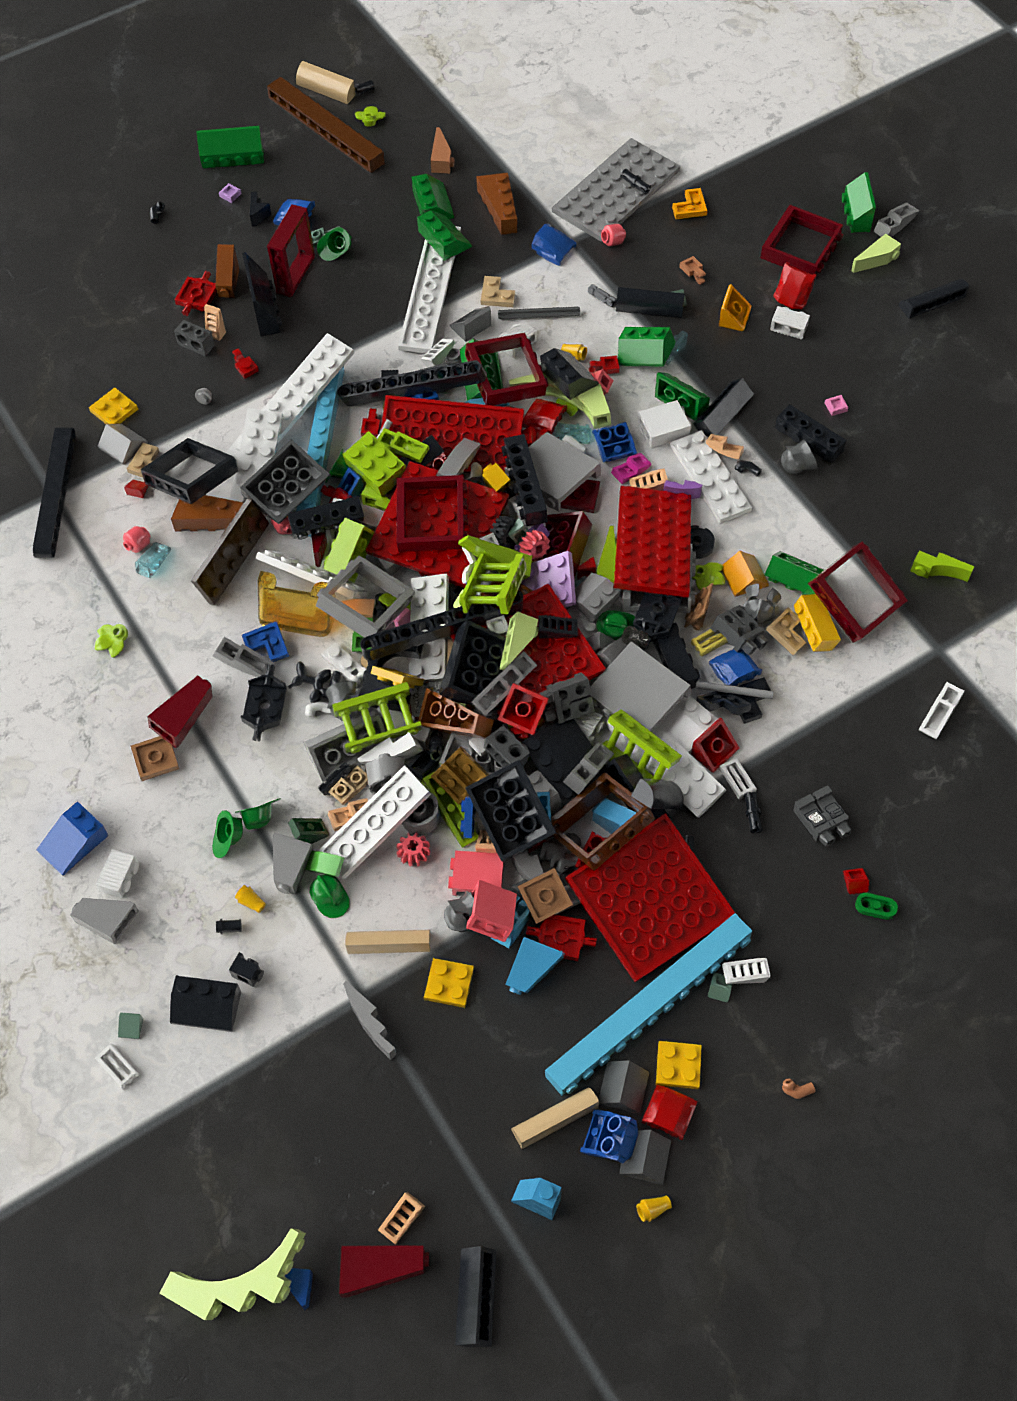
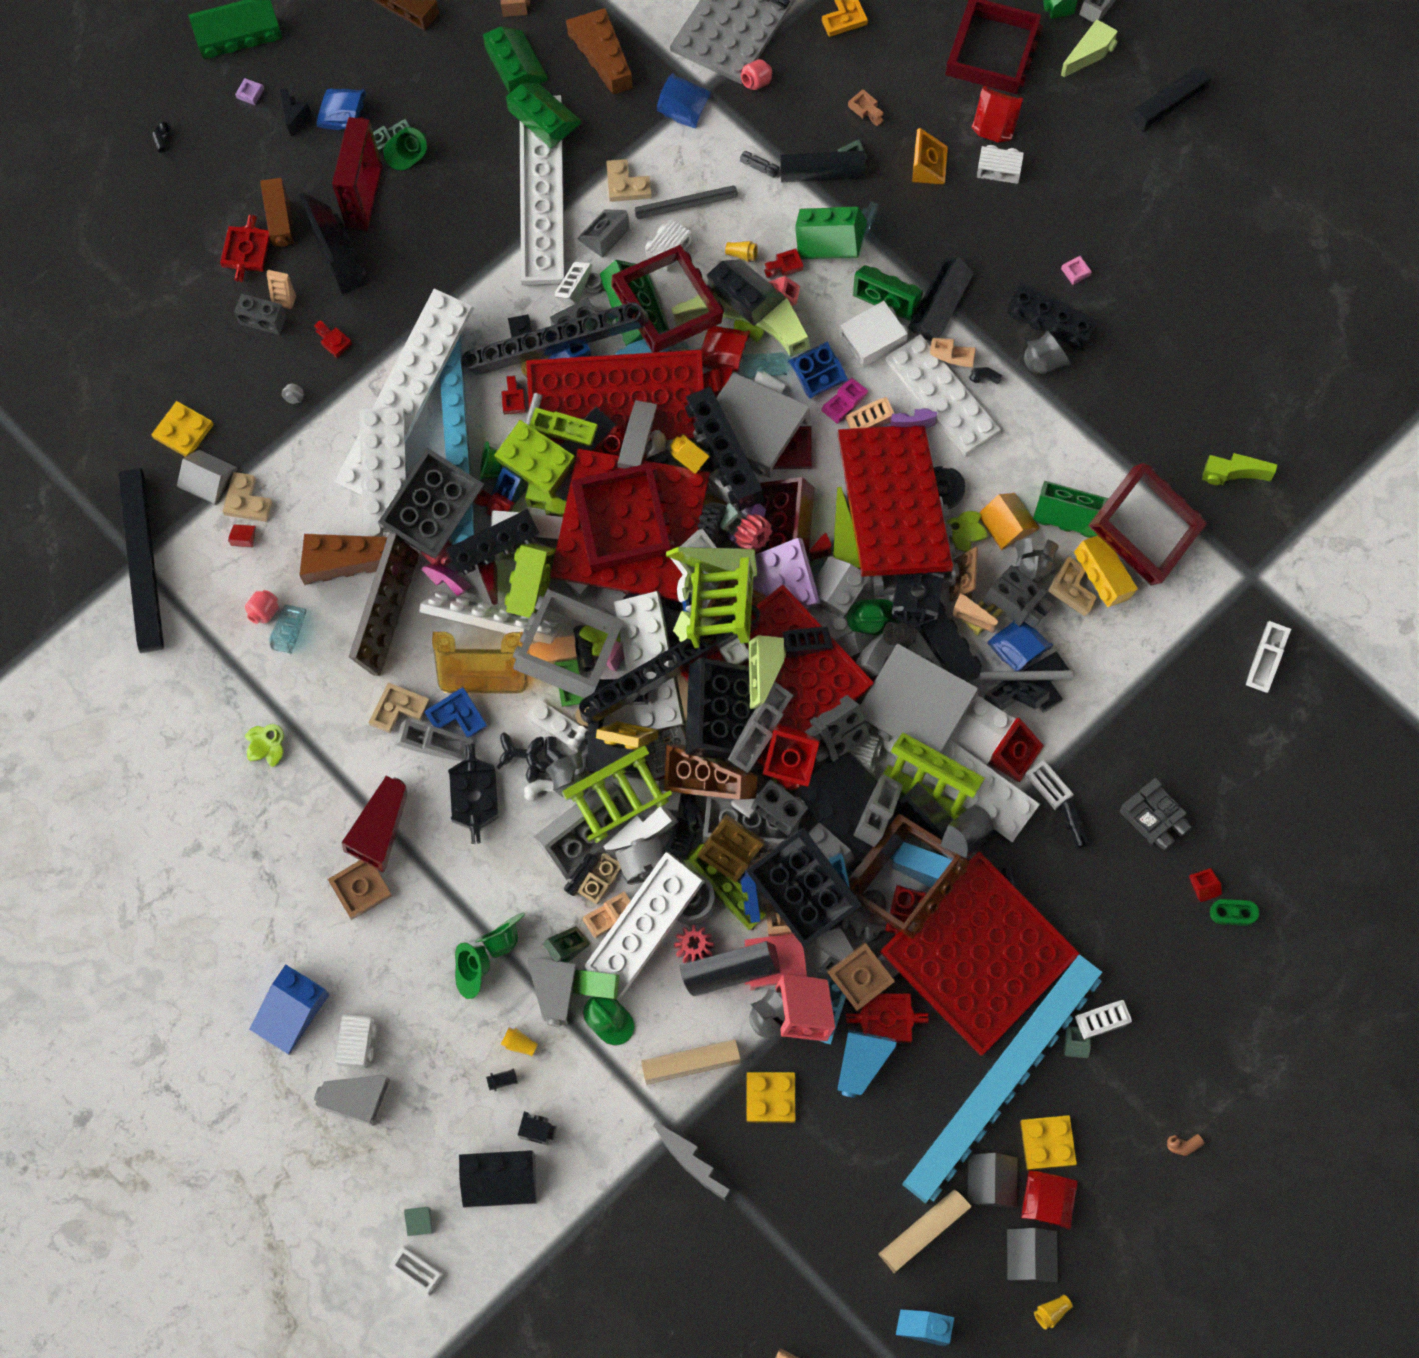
camera: 10 degrees left, 10 degrees up
(155, 471) = (316, 540): black window -> none
(221, 625) = (396, 702): none -> tan plate
(284, 540) = (441, 574): none -> dark pink slope
(438, 870) = (730, 968): none -> black brick
(611, 1136) = (991, 1242): blue slope -> none
(699, 635) = (972, 613): none -> light nougat slope

